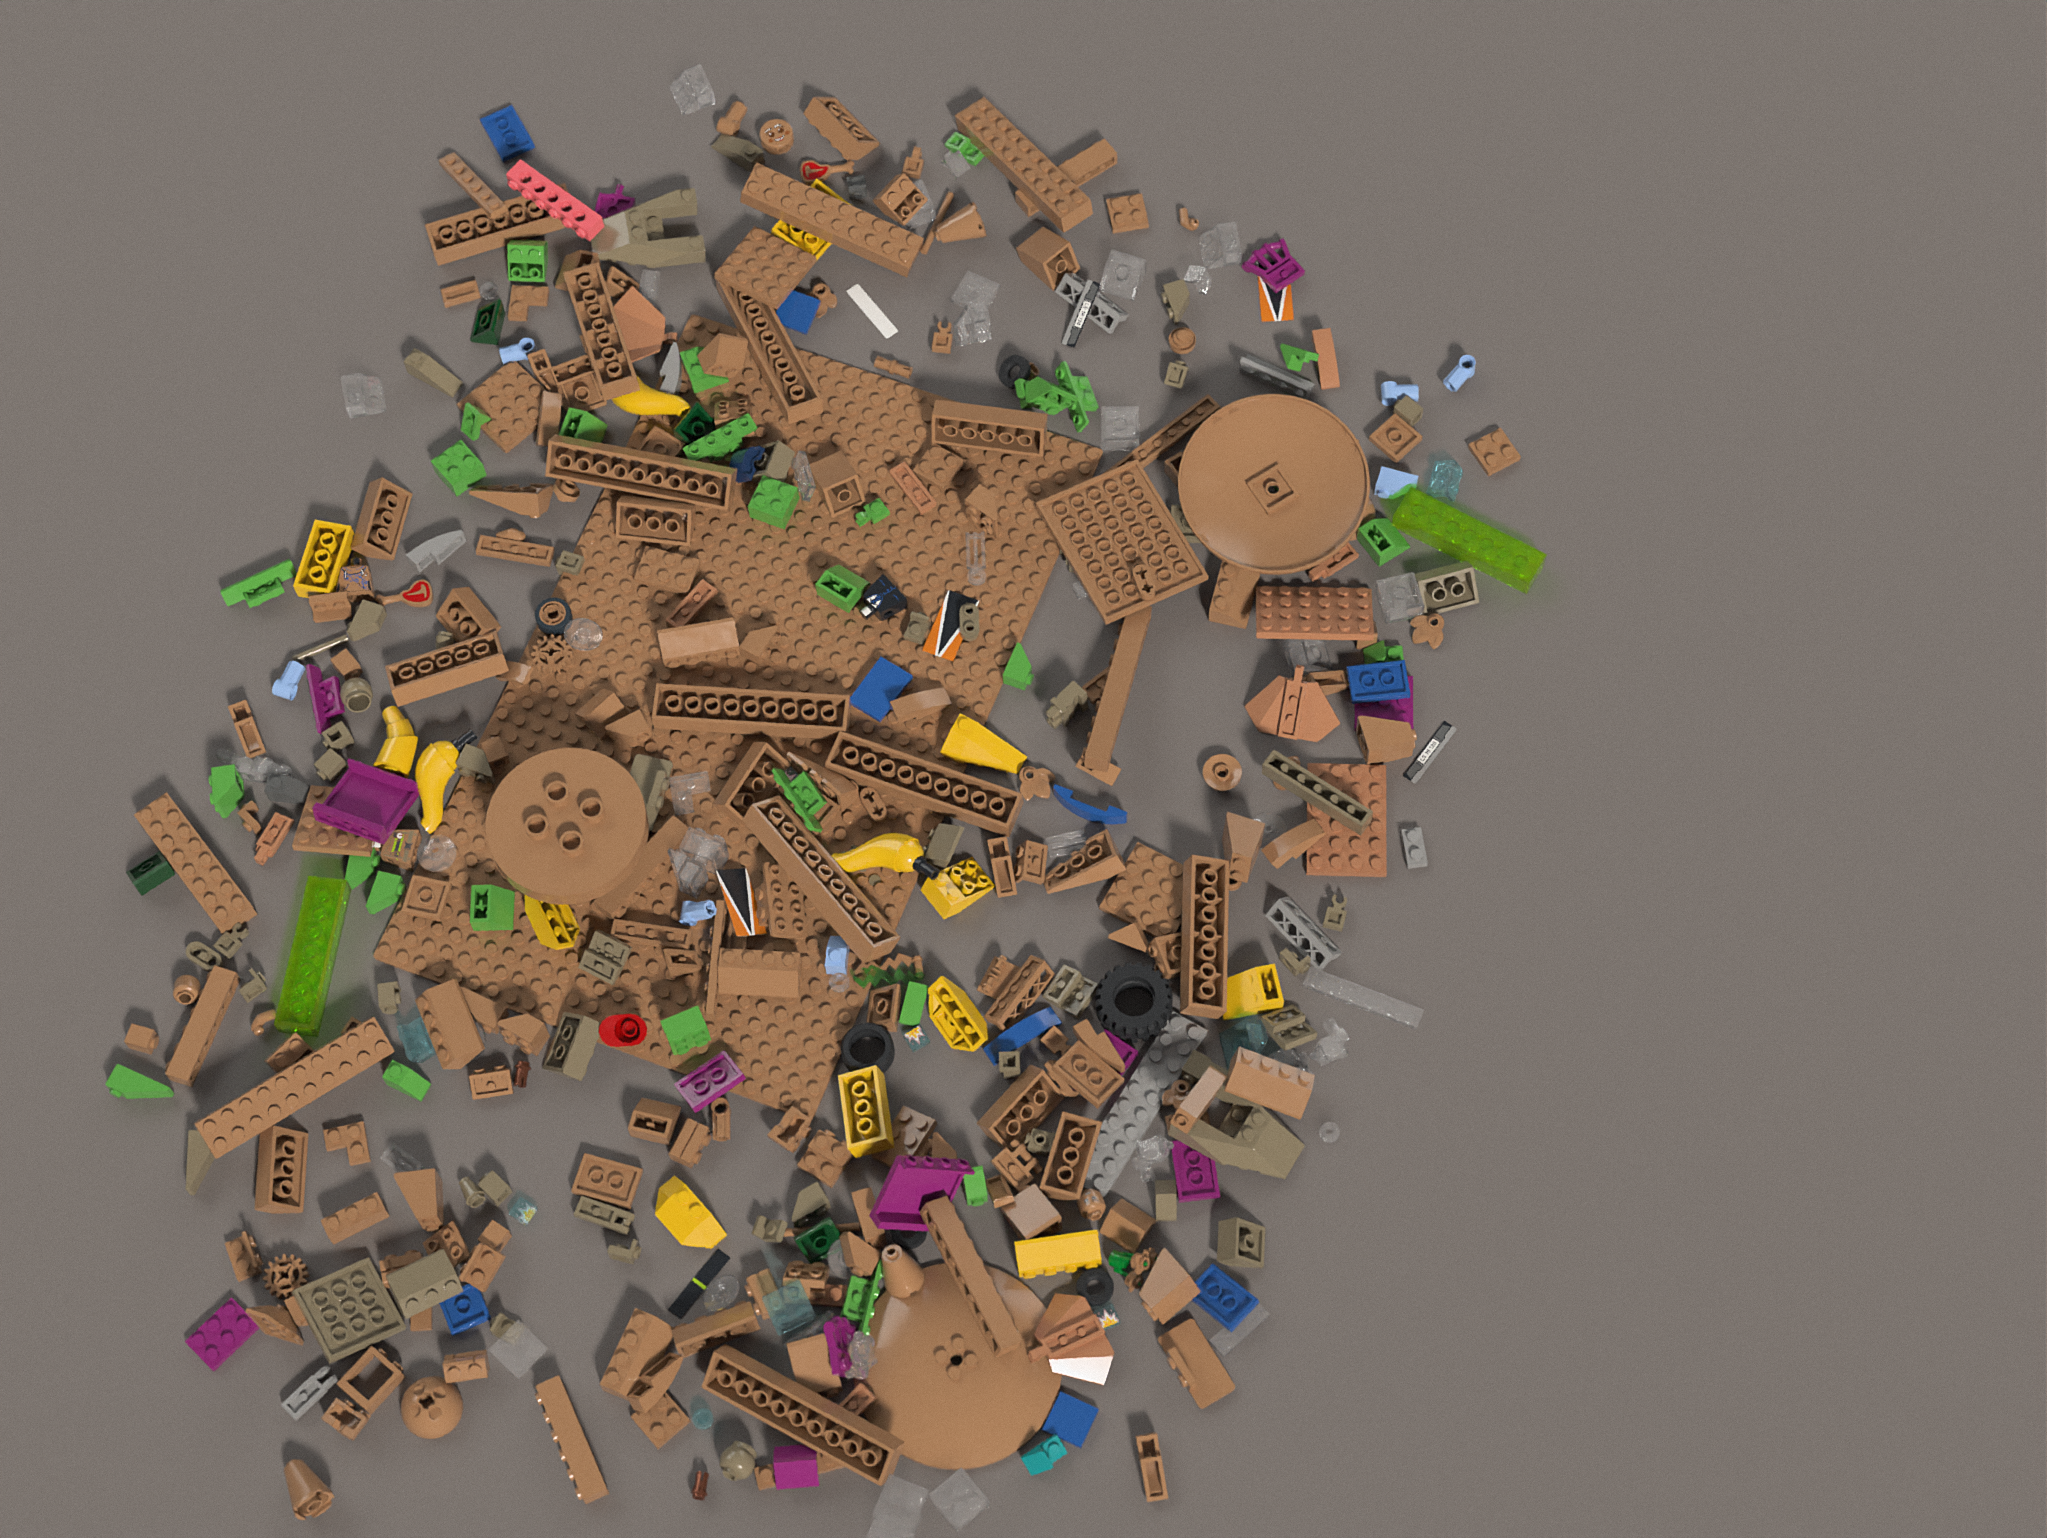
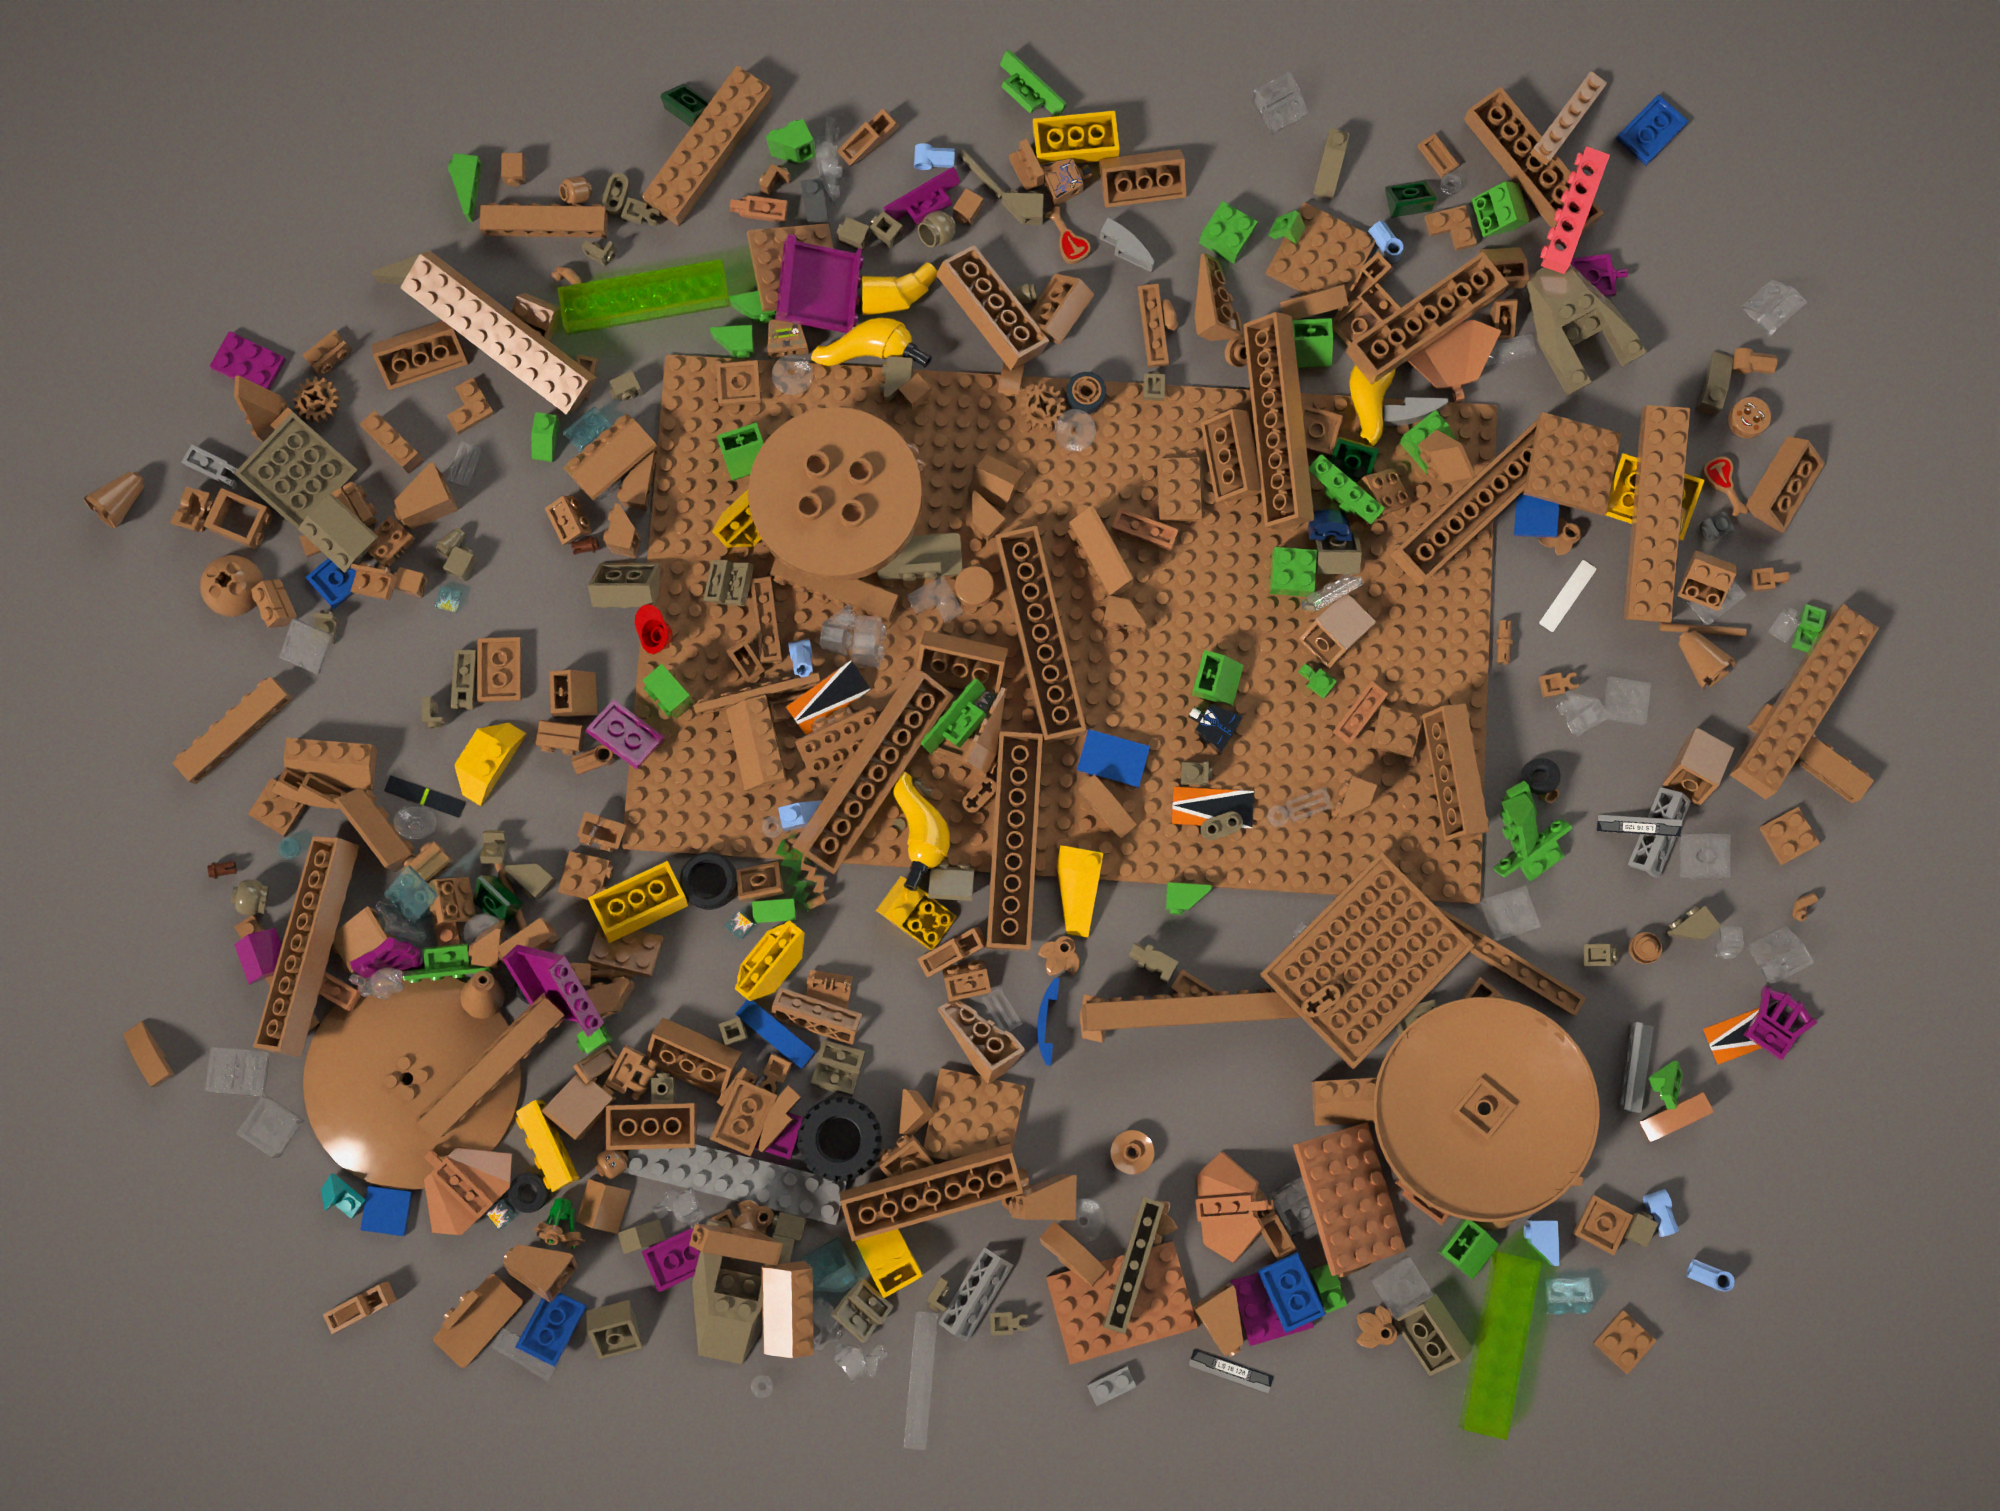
camera: 70 degrees right, 15 degrees up
(688, 755) = (974, 586): none -> medium nougat head

